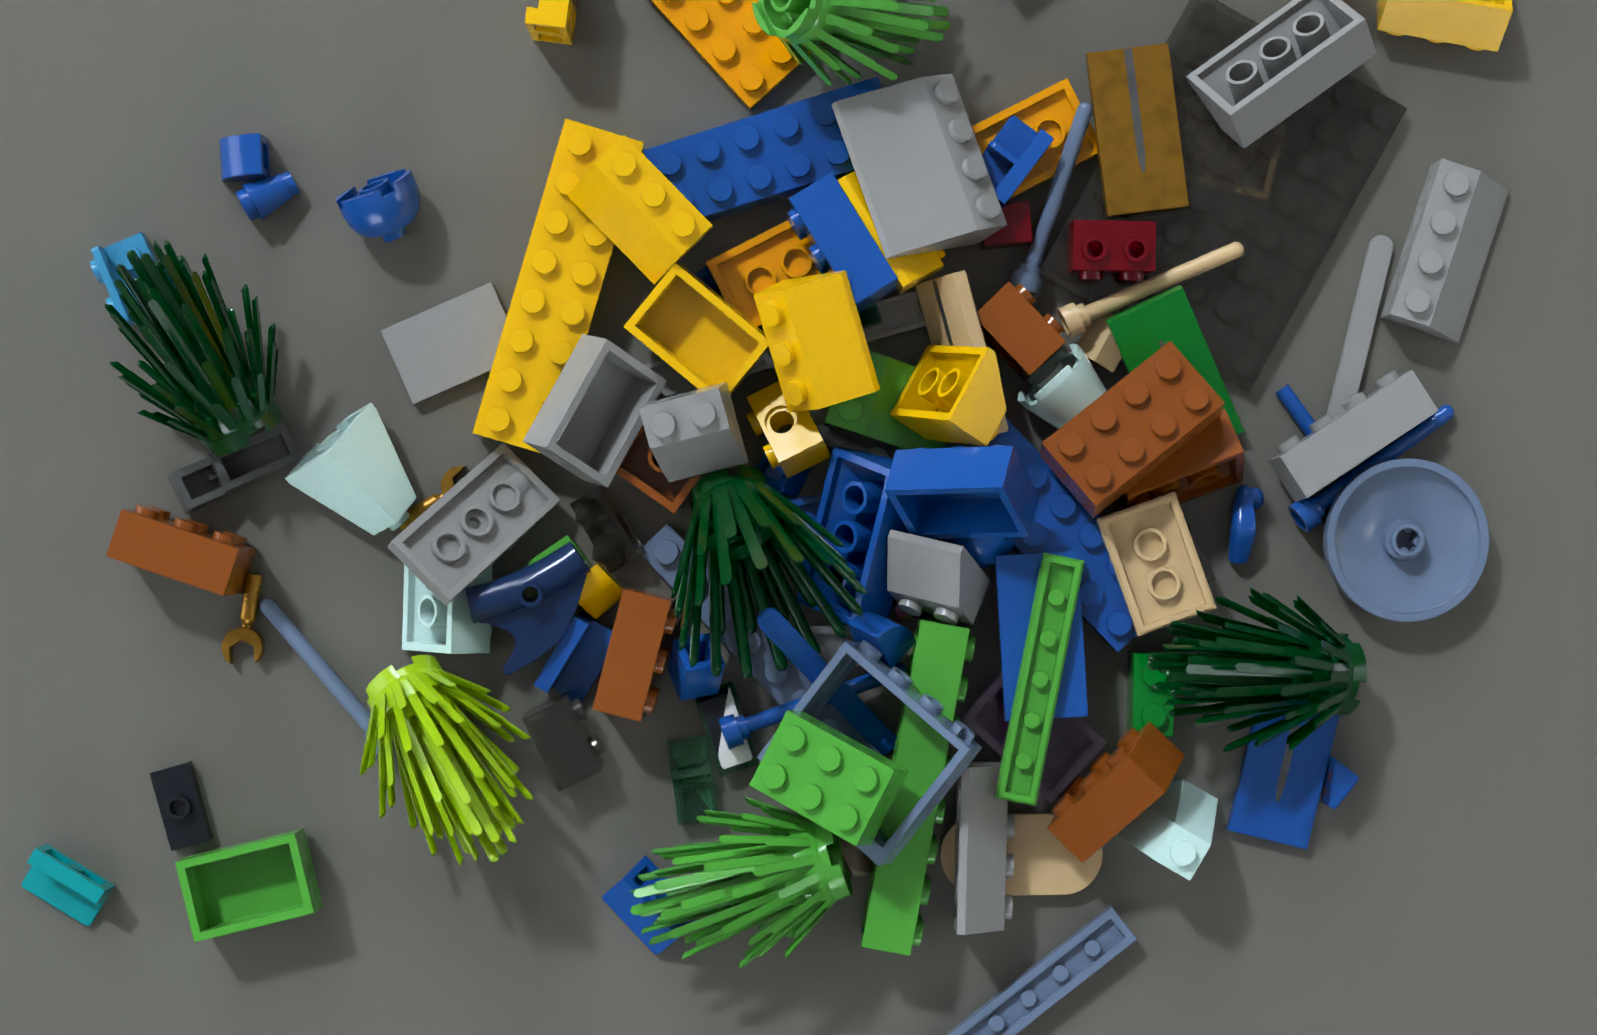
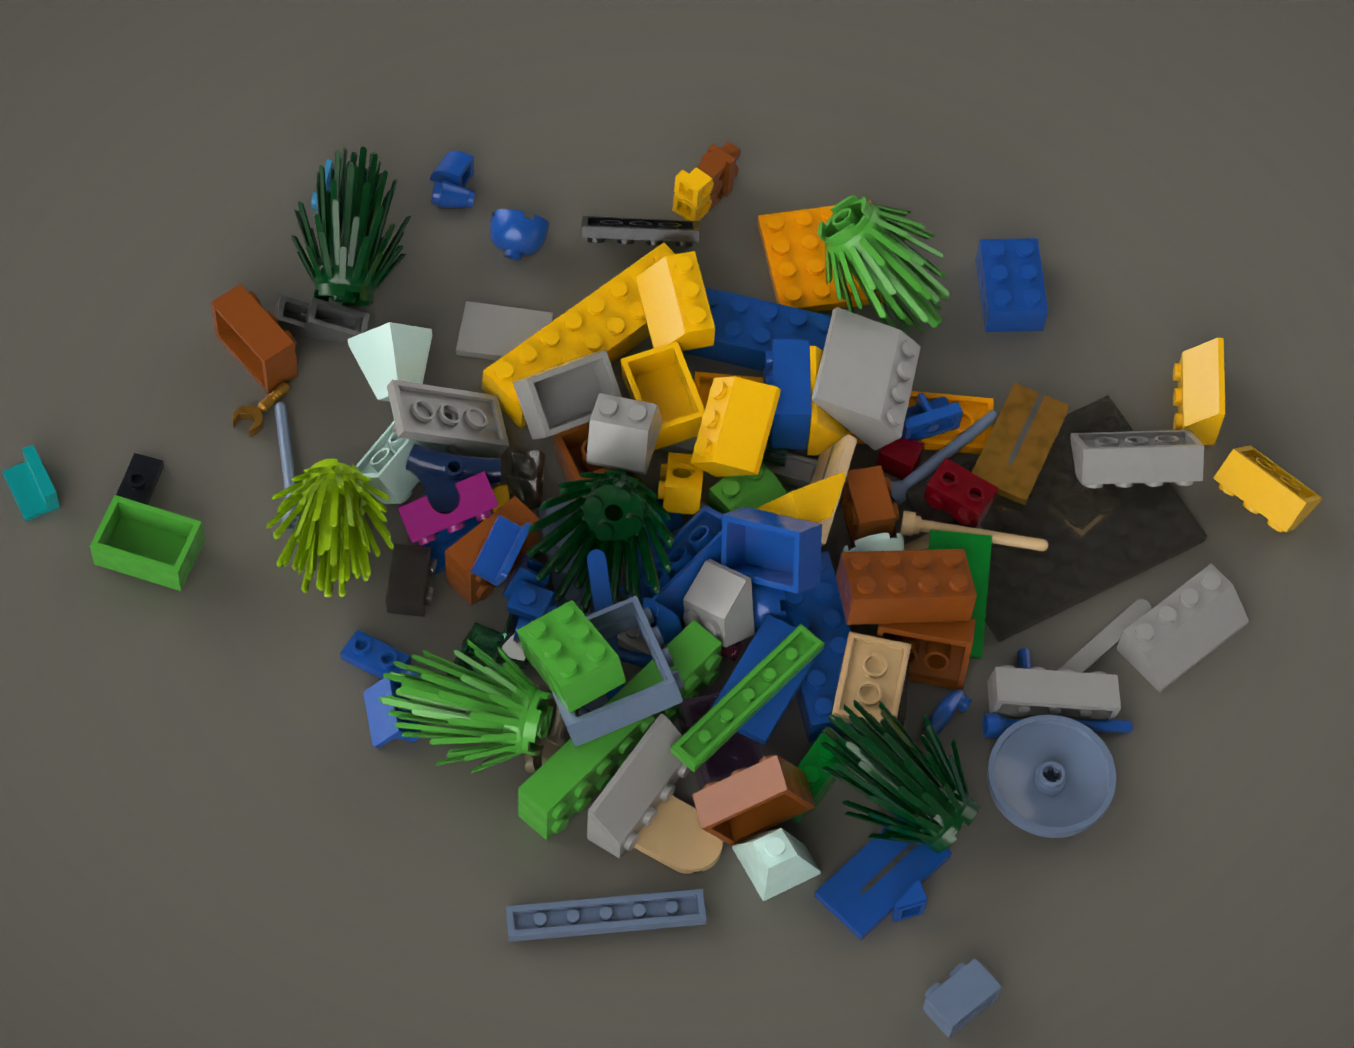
camera: 25 degrees right, 30 degrees down
(521, 108) = (630, 229): none -> black plate
(544, 679) = (475, 499): none -> magenta arch
(598, 851) = (374, 655): none -> blue plate
(657, 675) = (500, 550): none -> blue panel
(725, 700) = (531, 601): none -> blue bracket
(1451, 857) = (961, 997): none -> sand blue brick

